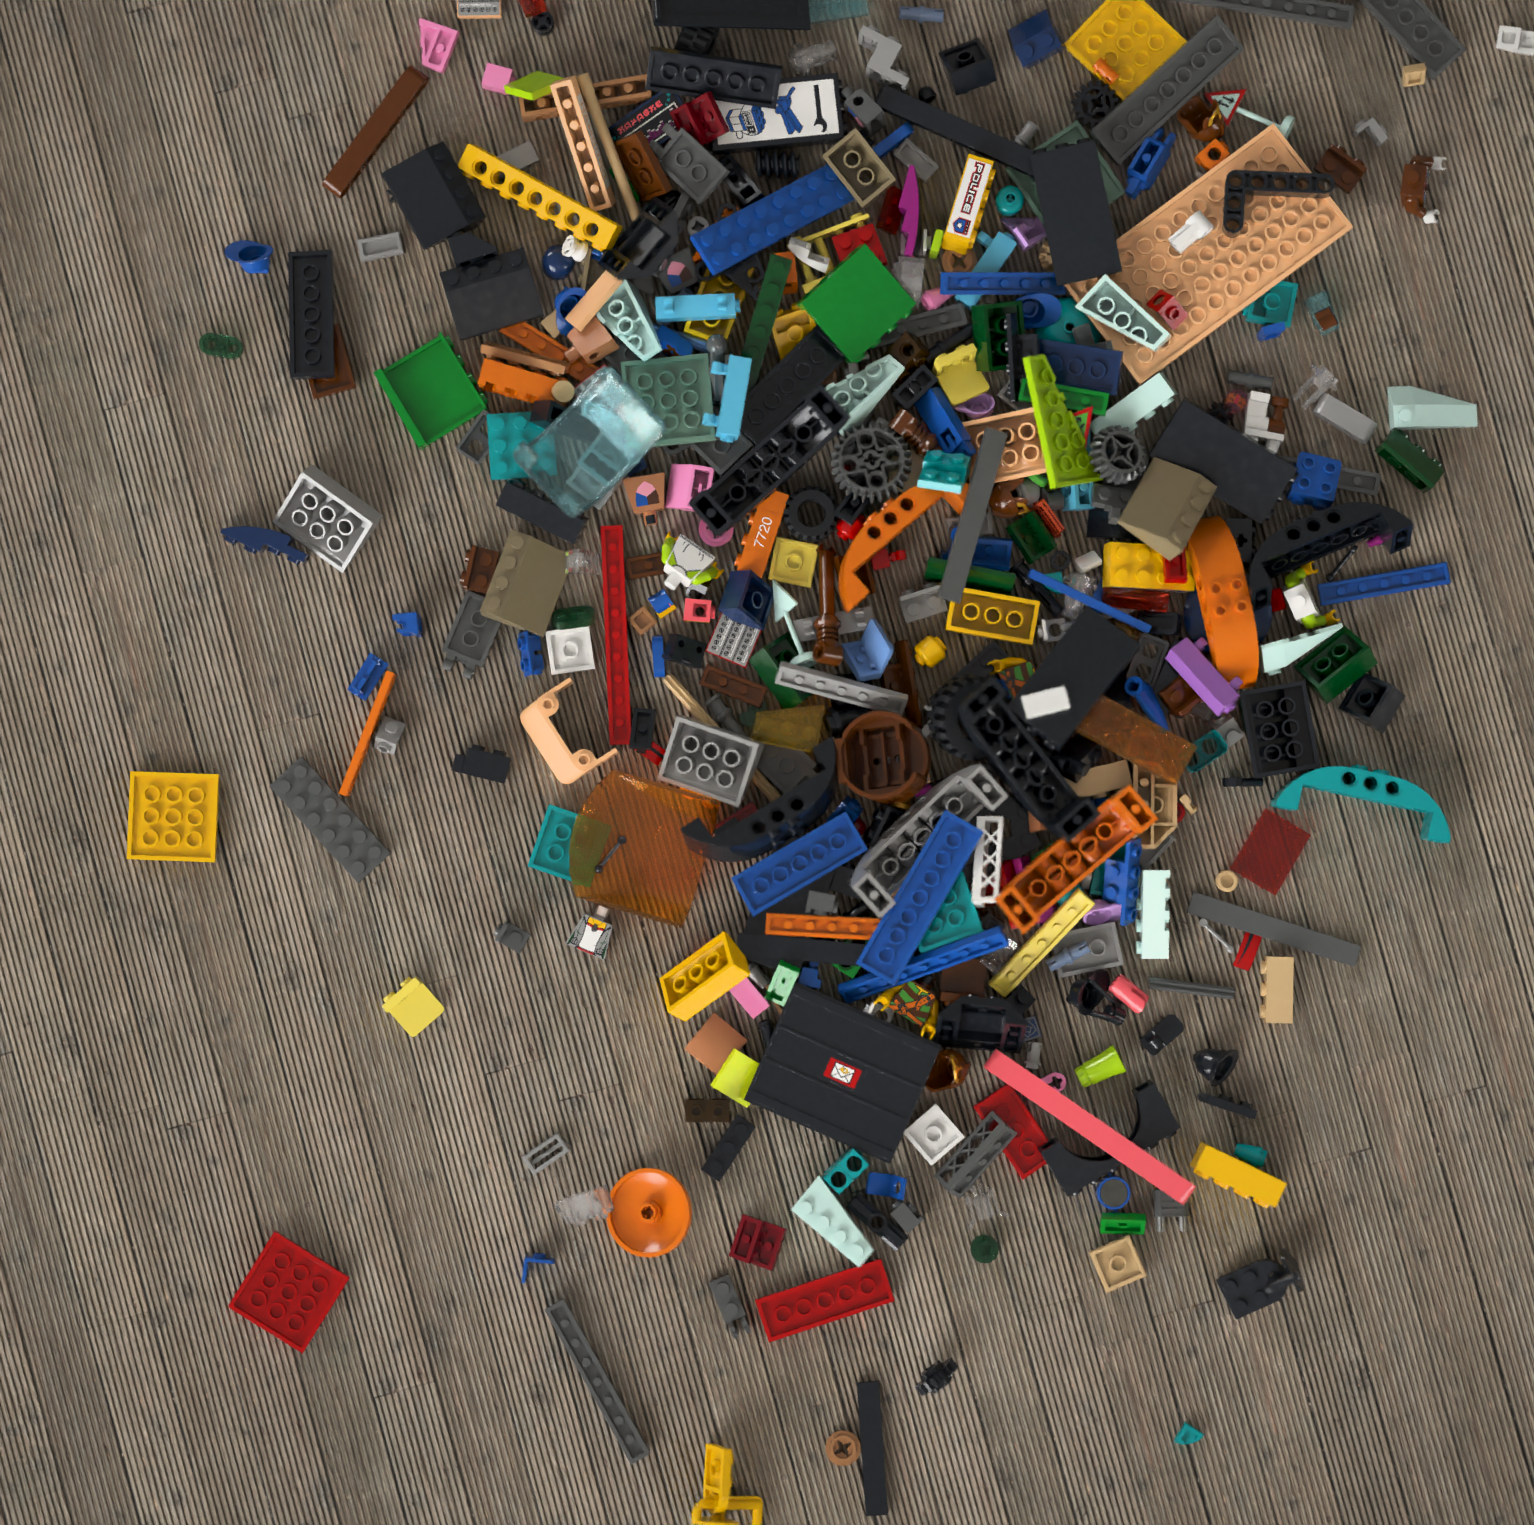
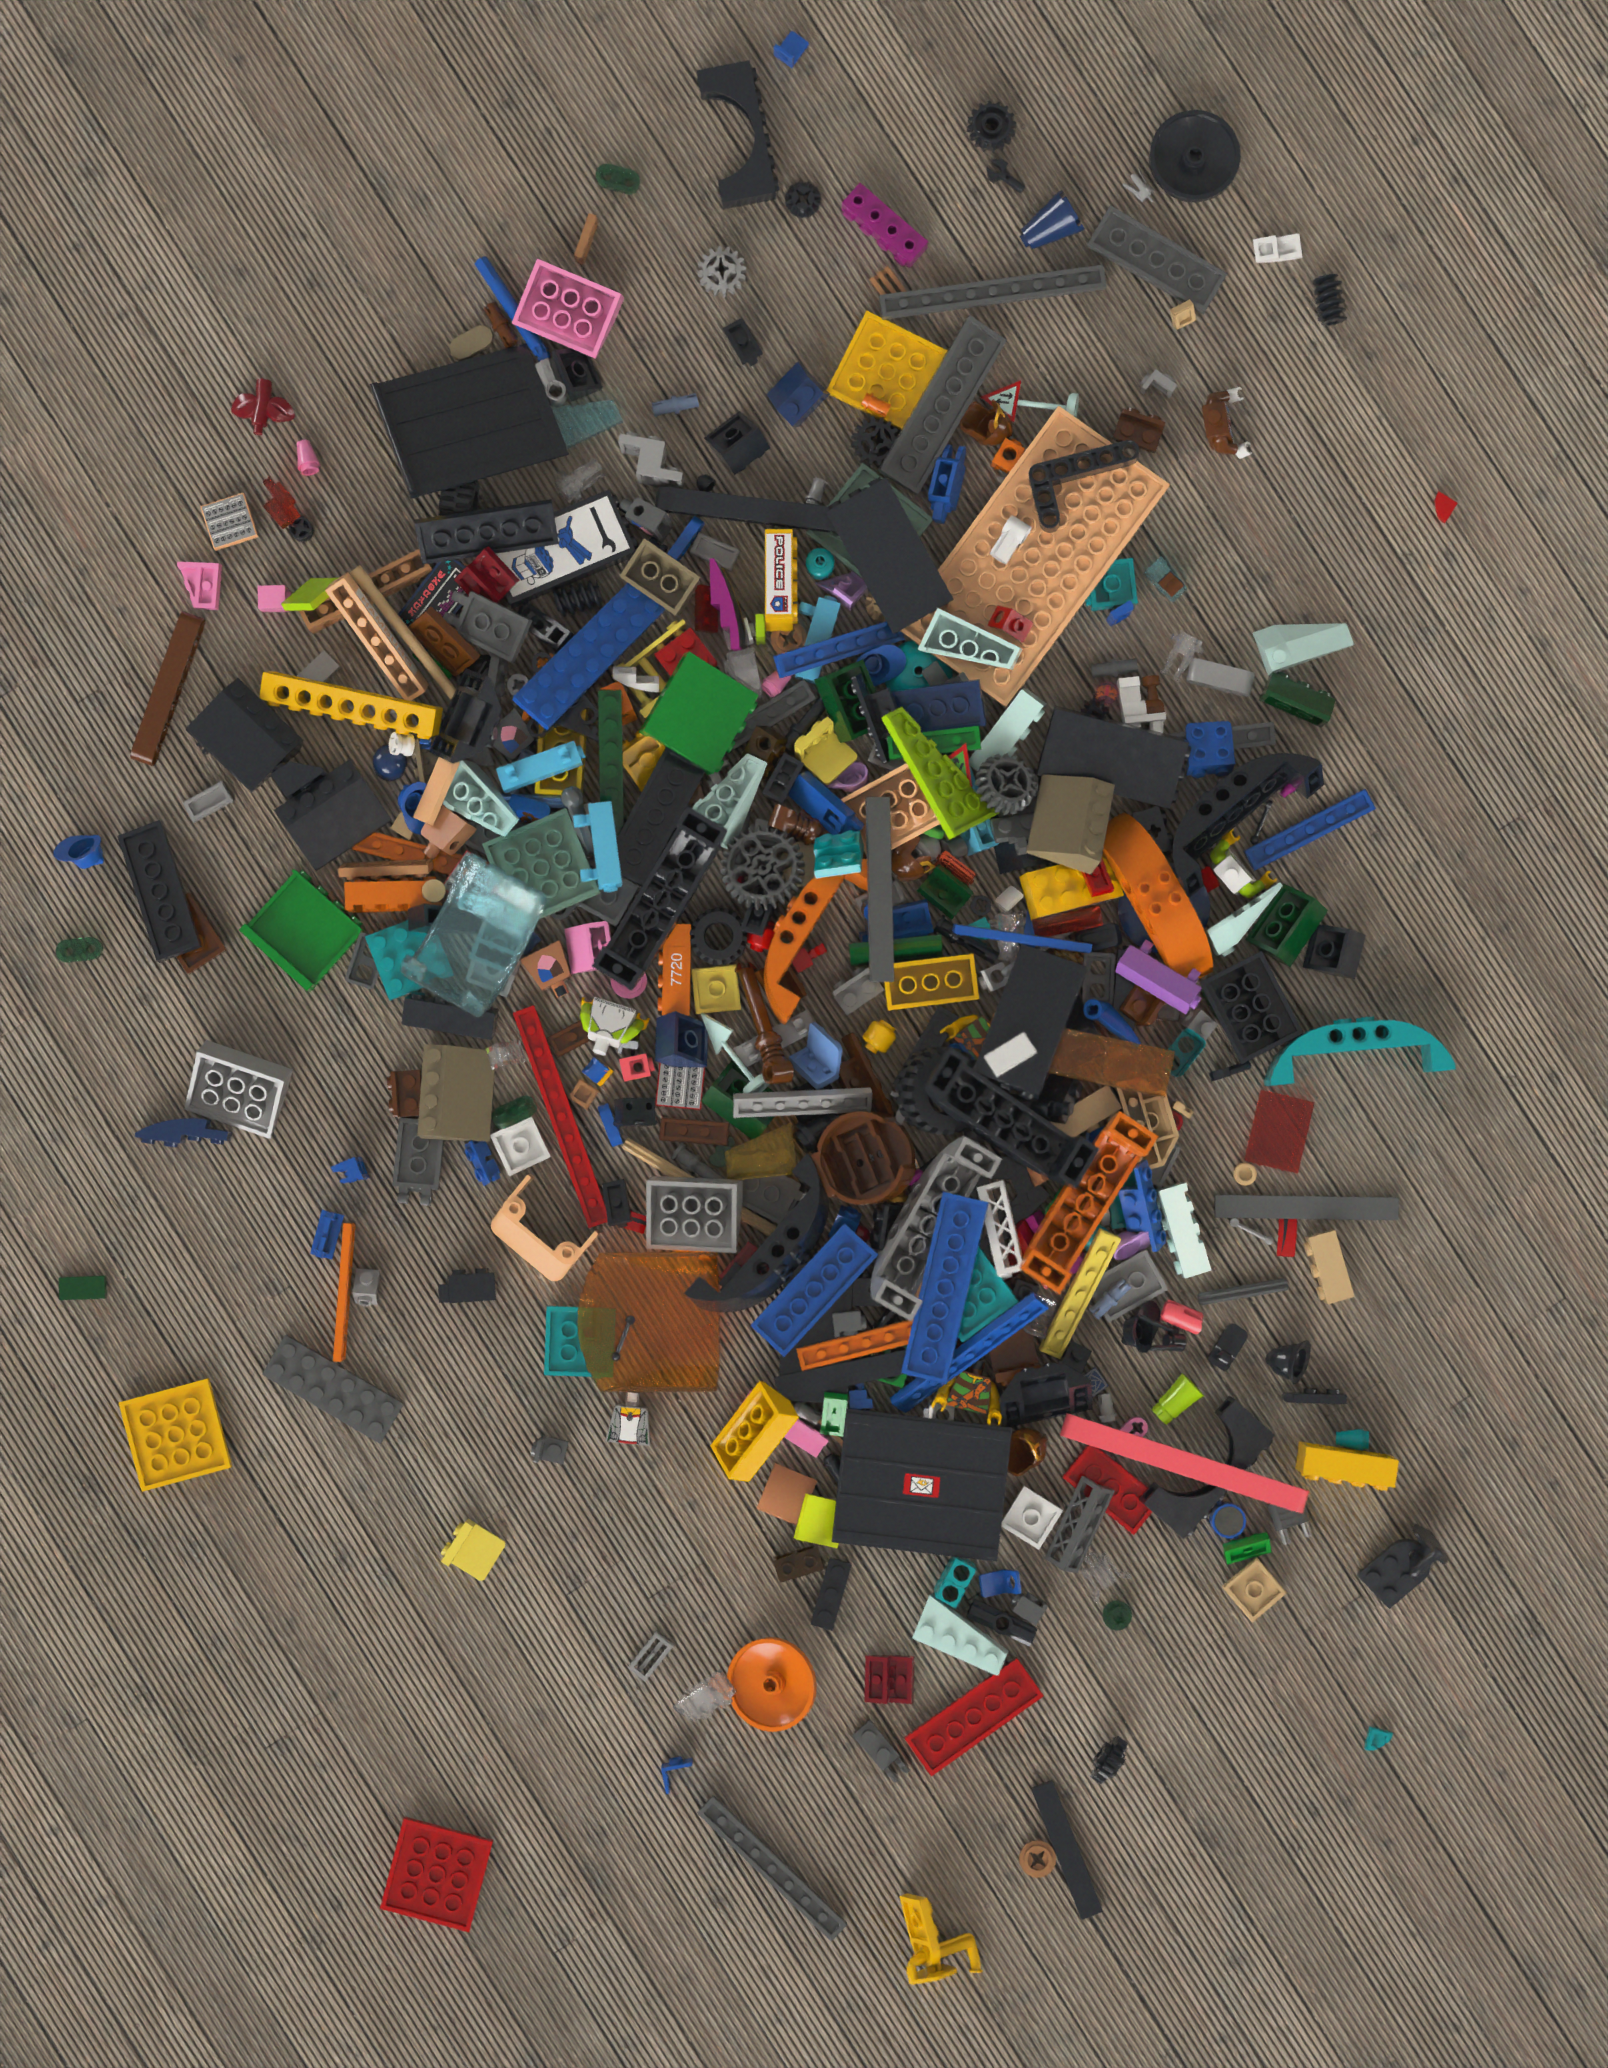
camera: 10 degrees left, 0 degrees up
(129, 656) = (82, 1287): none -> dark green tile

